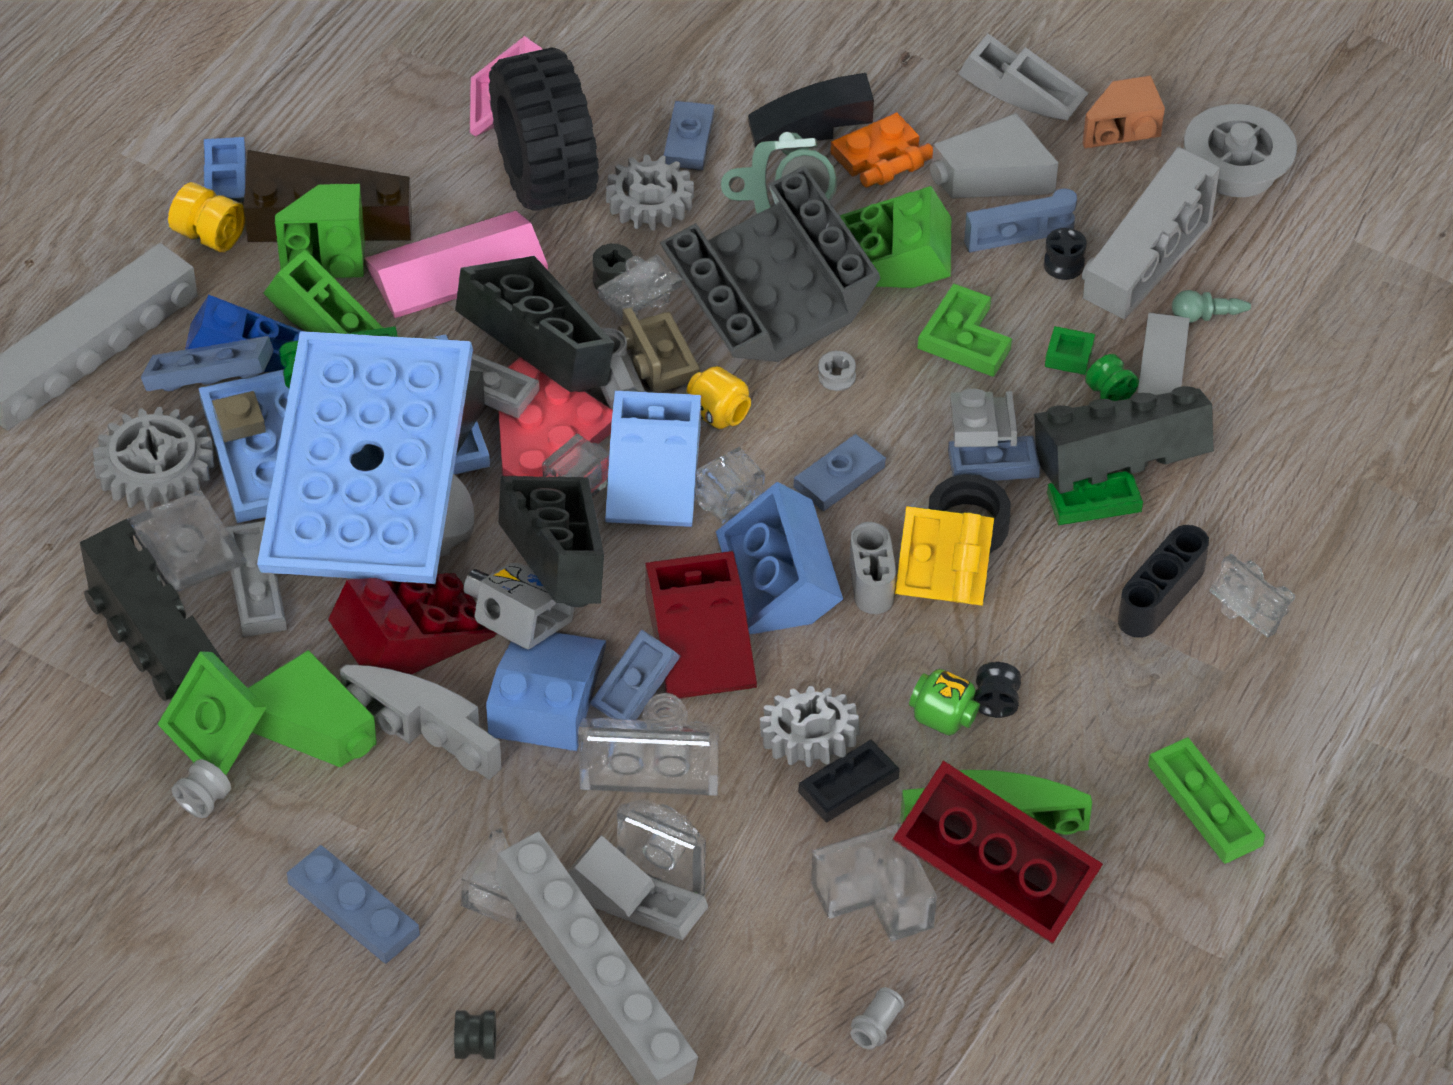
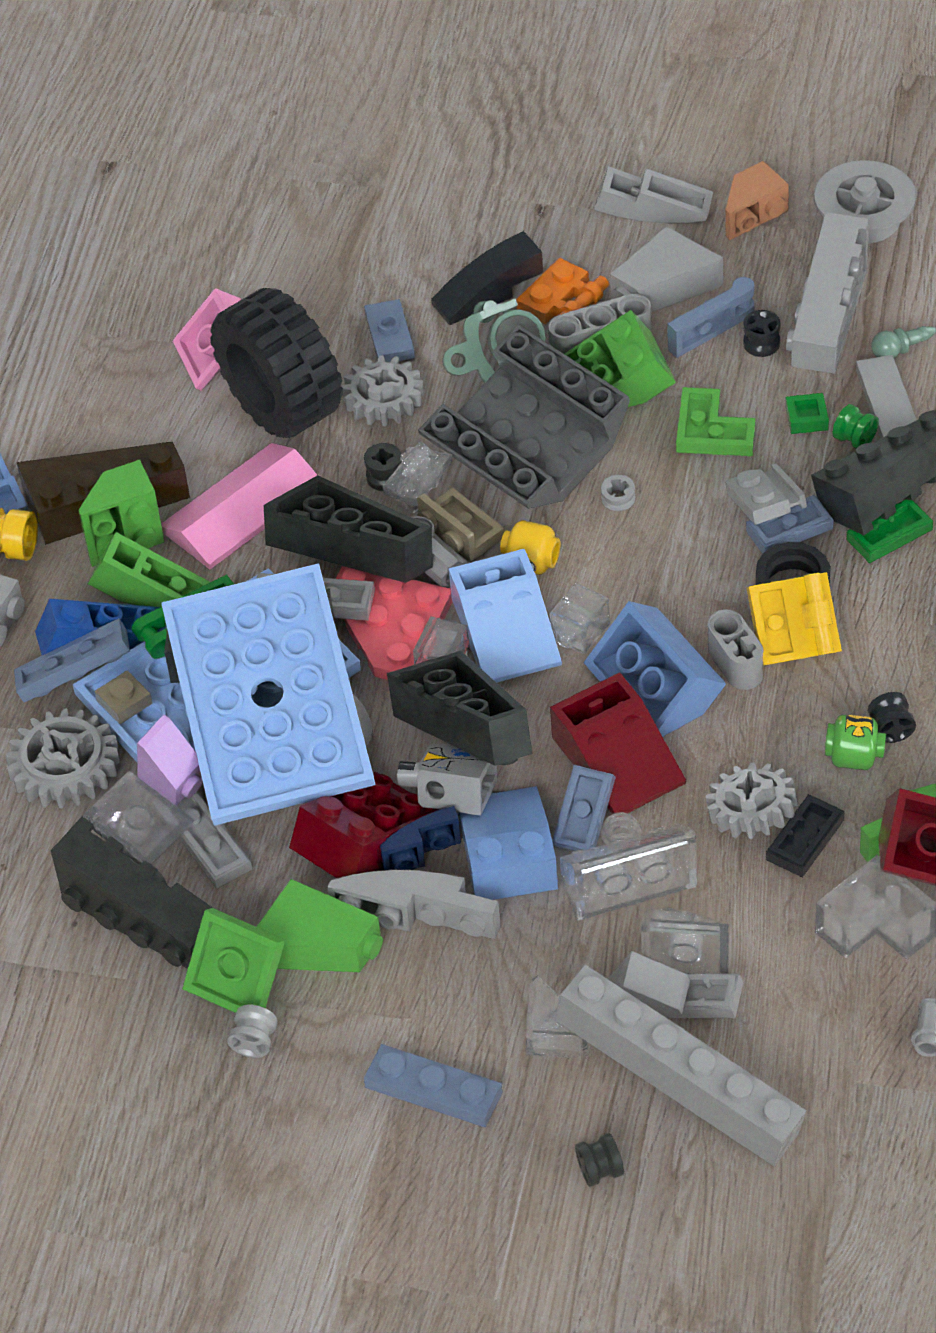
camera: 15 degrees left, 0 degrees up
(240, 492) = (168, 762): none -> lavender slope
(443, 656) = (431, 832): none -> dark blue slope
(839, 472) = (664, 577): sand blue plate -> none
(870, 187) = (576, 326): none -> light grey beam

